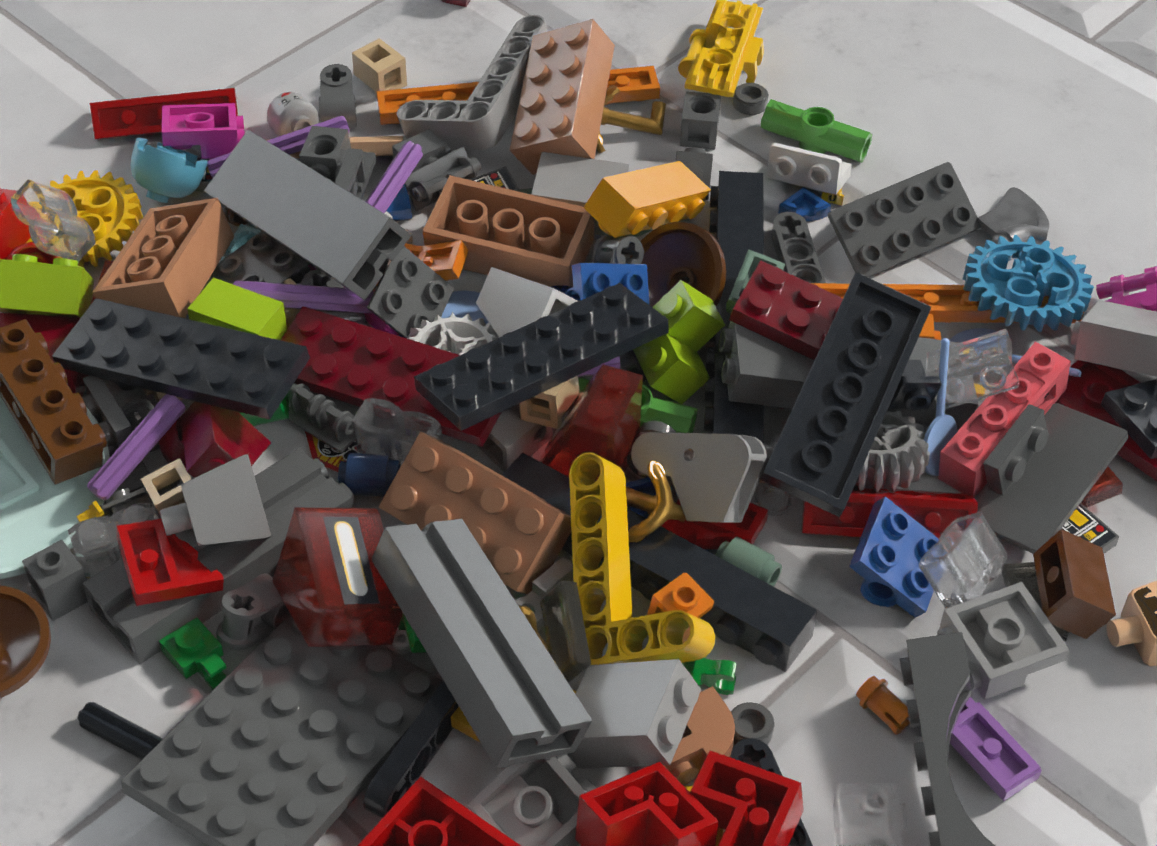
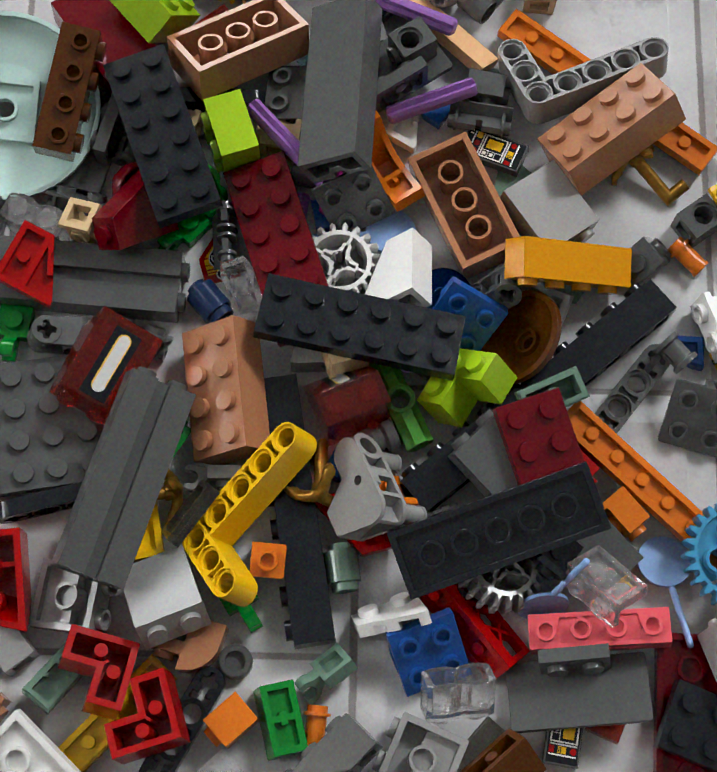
camera: 45 degrees right, 25 degrees up
(93, 511) = (36, 192): yellow piece -> none
(136, 447) = (92, 170): medium lavender axle -> none
(220, 506) = (84, 262): light grey torso -> none
(283, 438) = (189, 232): none -> green plate
(723, 147) = (687, 256): none -> orange pin
(802, 201) = (675, 352): none -> dark grey bush
(814, 760) = (229, 721): none -> orange brick
(835, 648) = (328, 670): none -> sand green plate
(836, 553) = (389, 616): none -> white wing
(851, 725) = (280, 719): none -> green hinge

